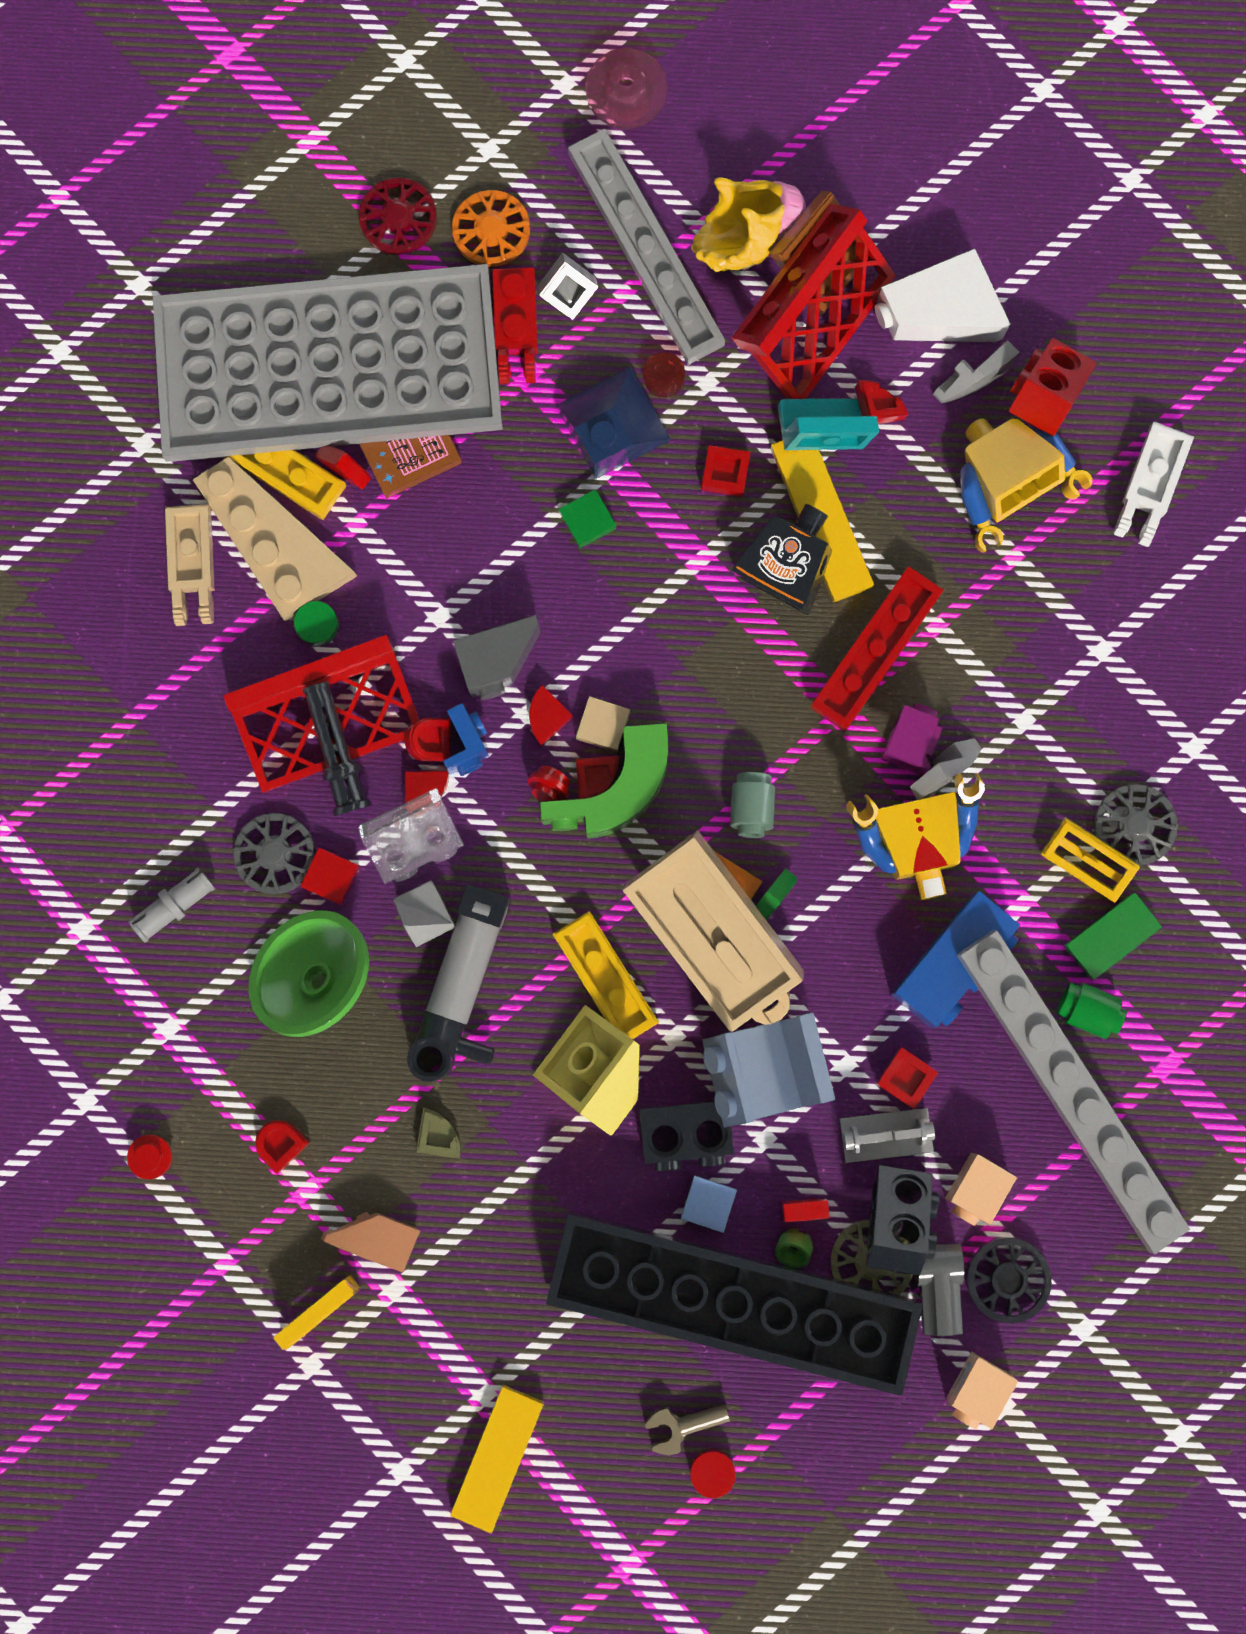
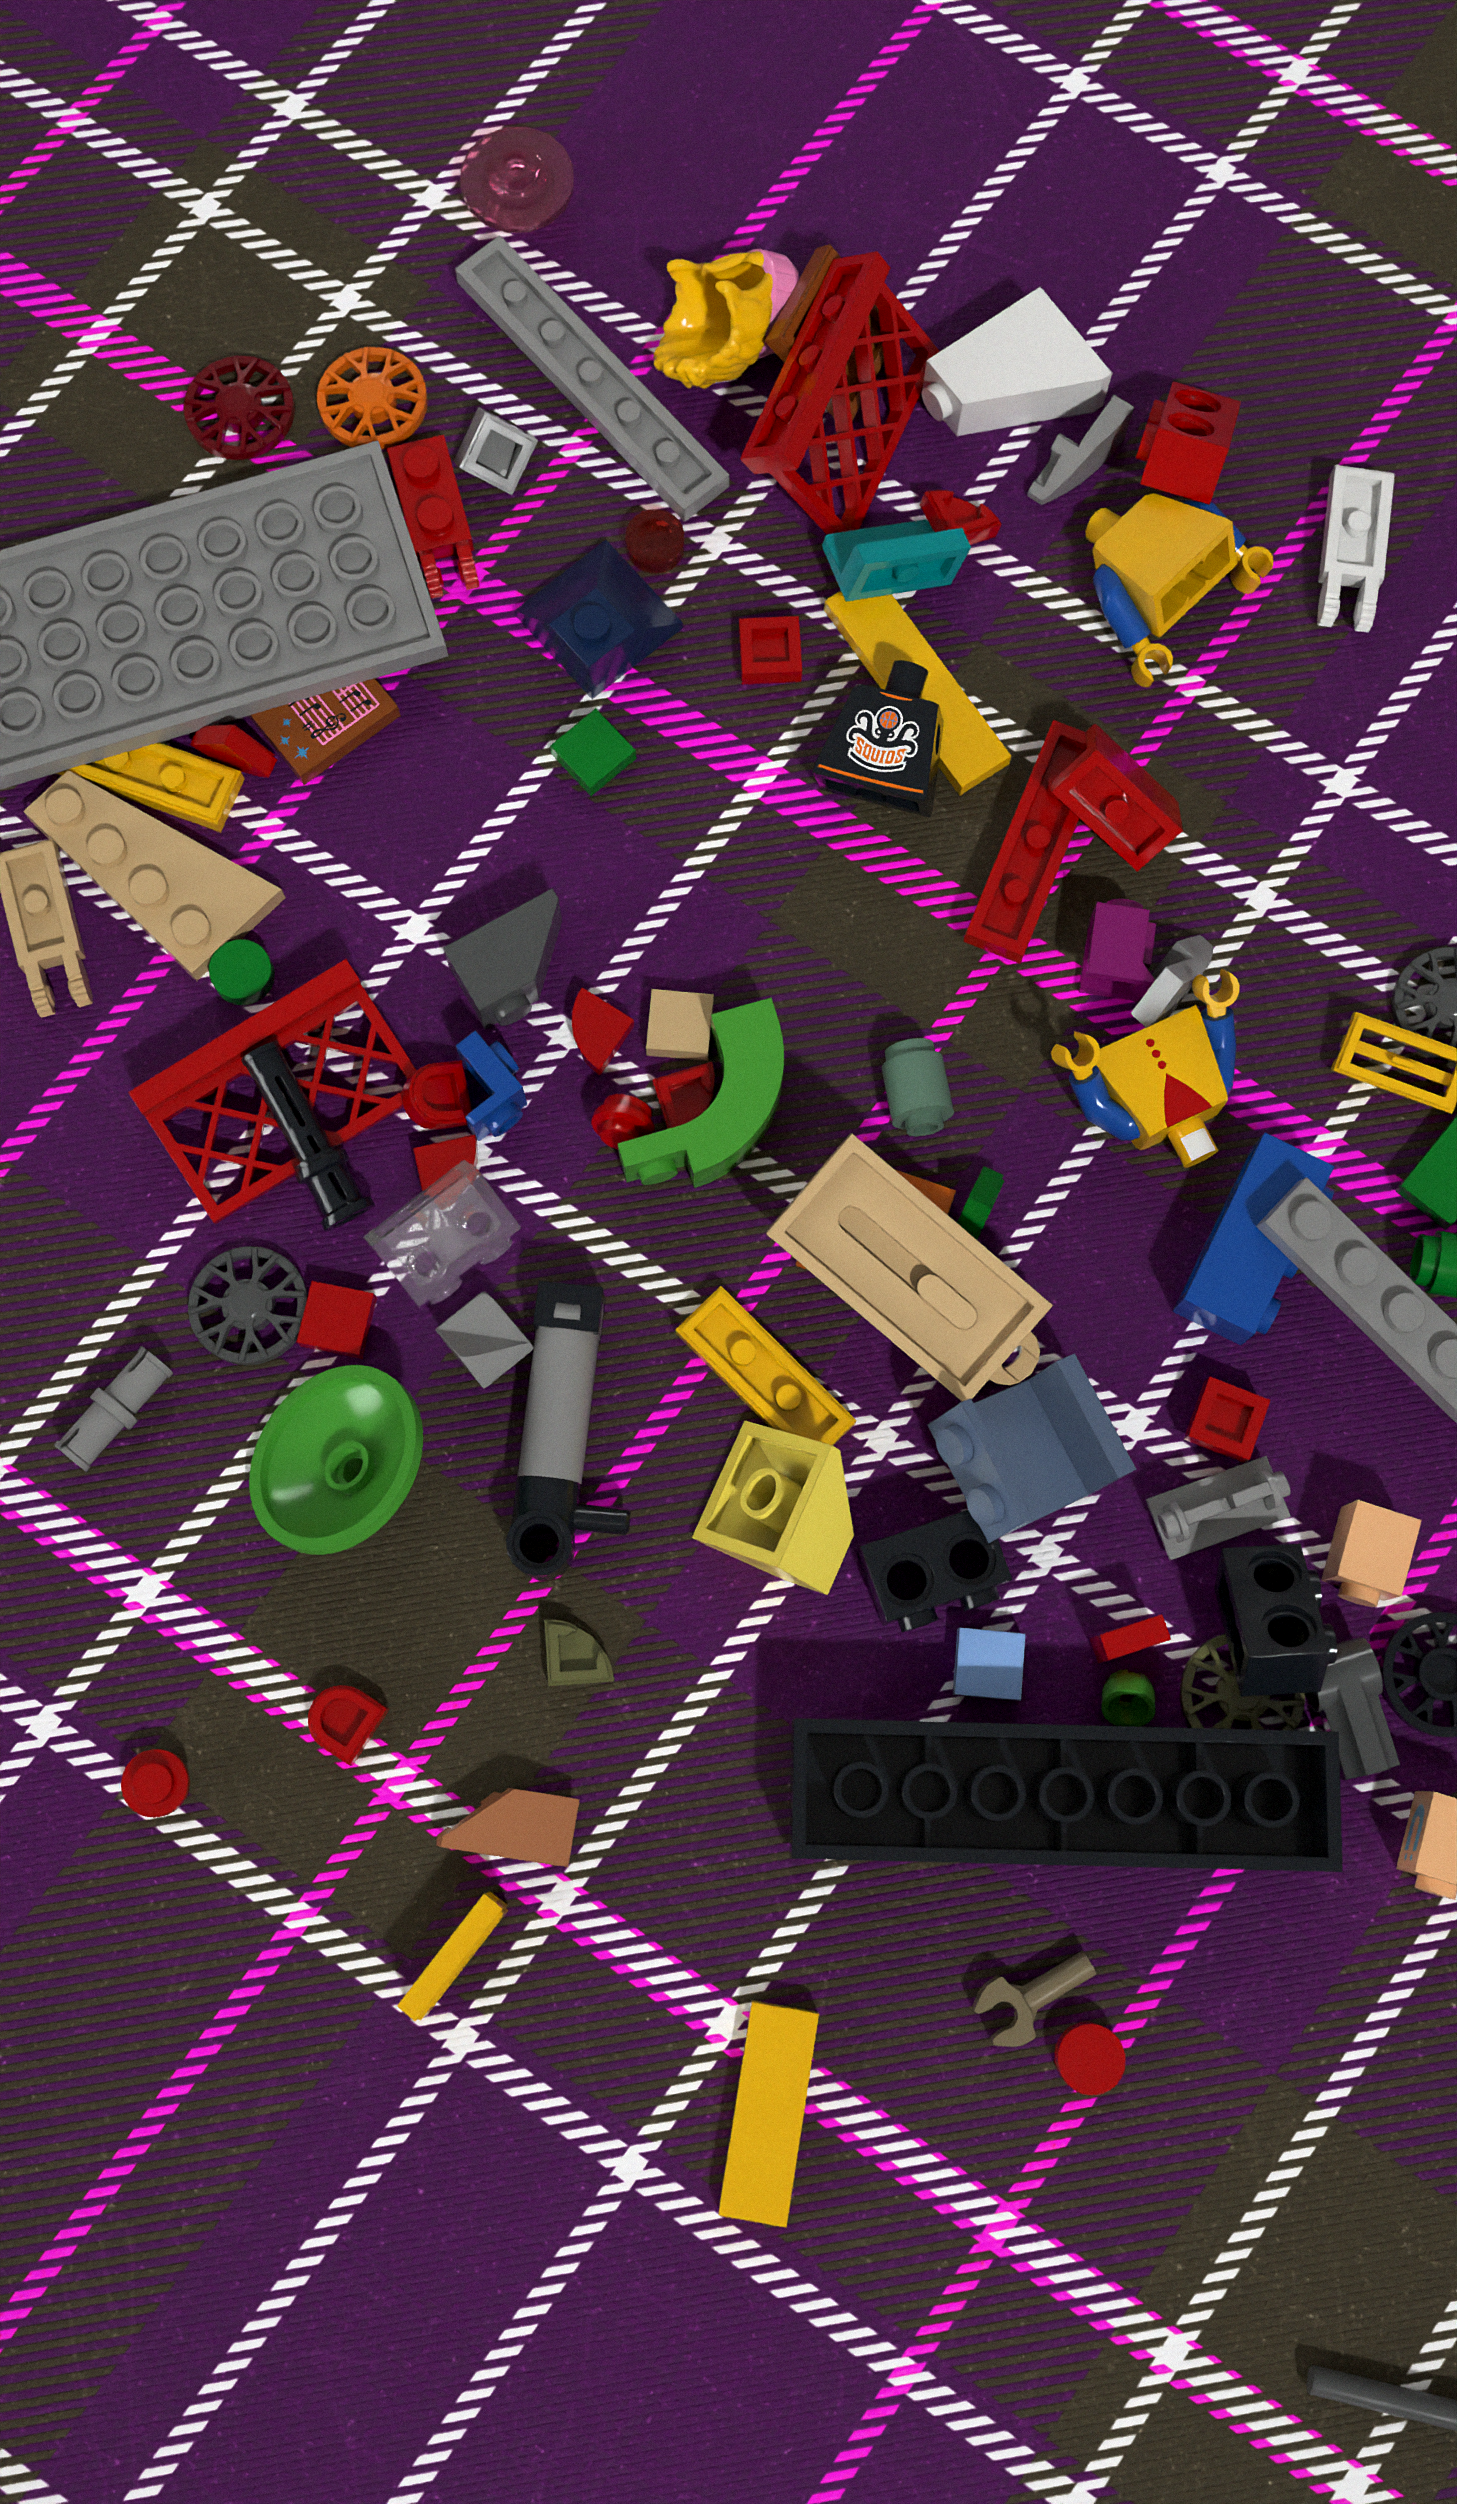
camera: 20 degrees left, 5 degrees down
(939, 633) = (1119, 800): none -> red panel

